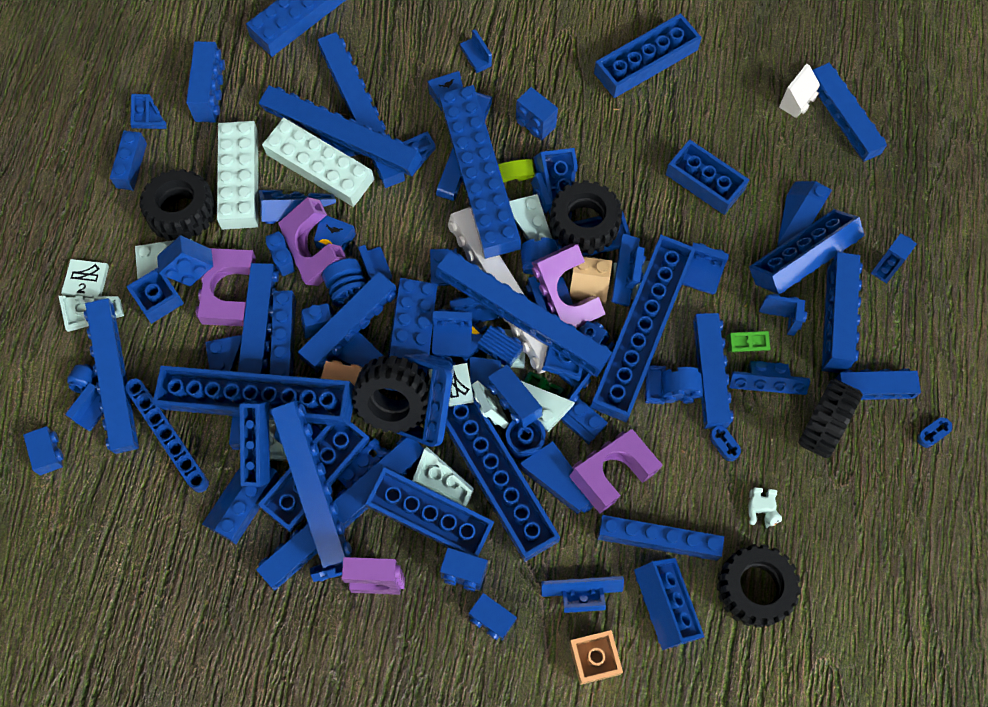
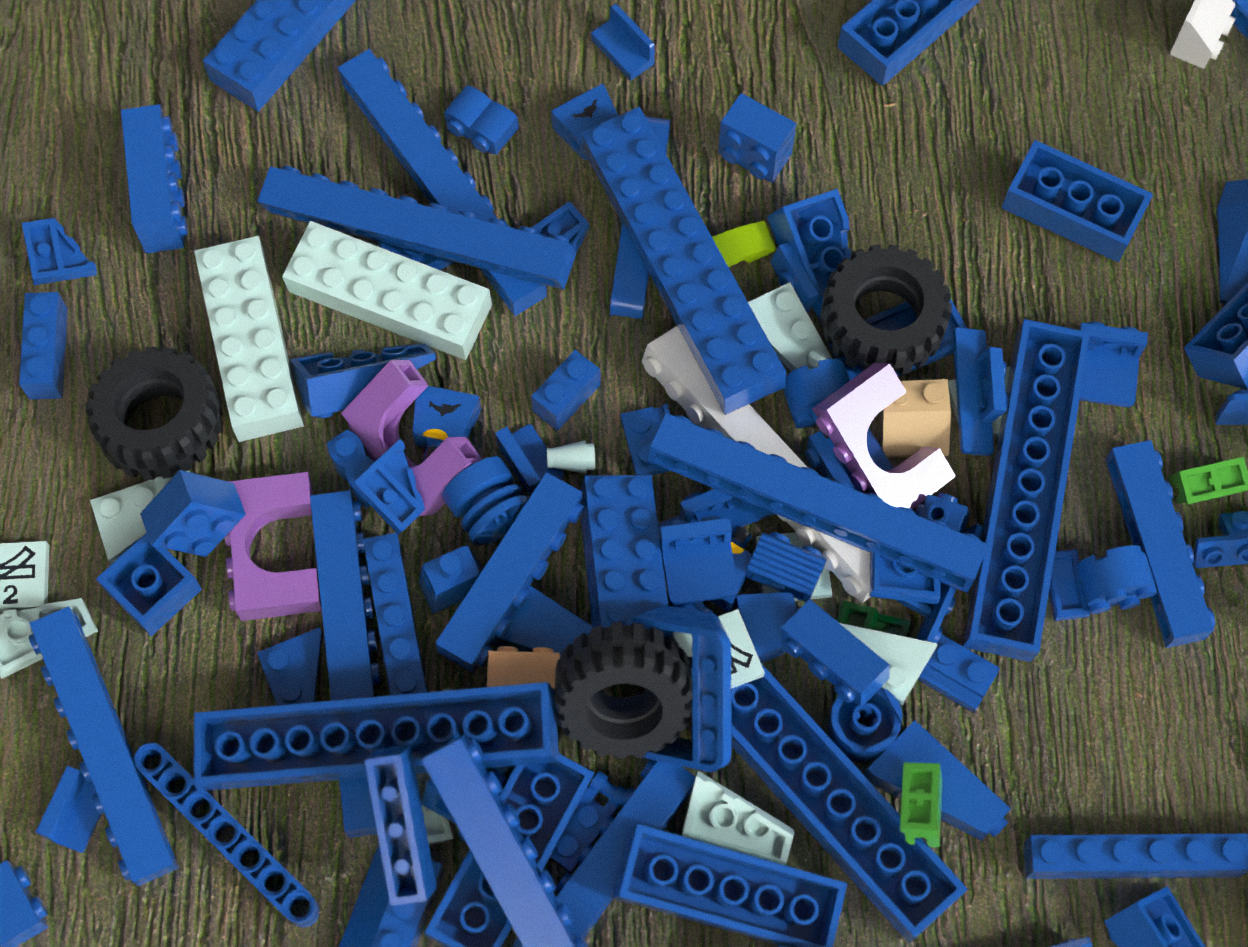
camera: 10 degrees left, 0 degrees up
(80, 377) = (48, 759): blue head -> none
(294, 266) = (391, 488): none -> blue wing
(389, 80) = (481, 120): none -> blue brick
(399, 268) = (572, 457): none -> light aqua cone
(402, 231) = (566, 390): none -> blue brick
(490, 405) = (795, 679): light aqua plate -> none
(544, 485) = (921, 802): none -> bright green hinge
(627, 449) = (995, 769): medium lavender arch -> none
(728, 440) = (1215, 666): blue beam -> none

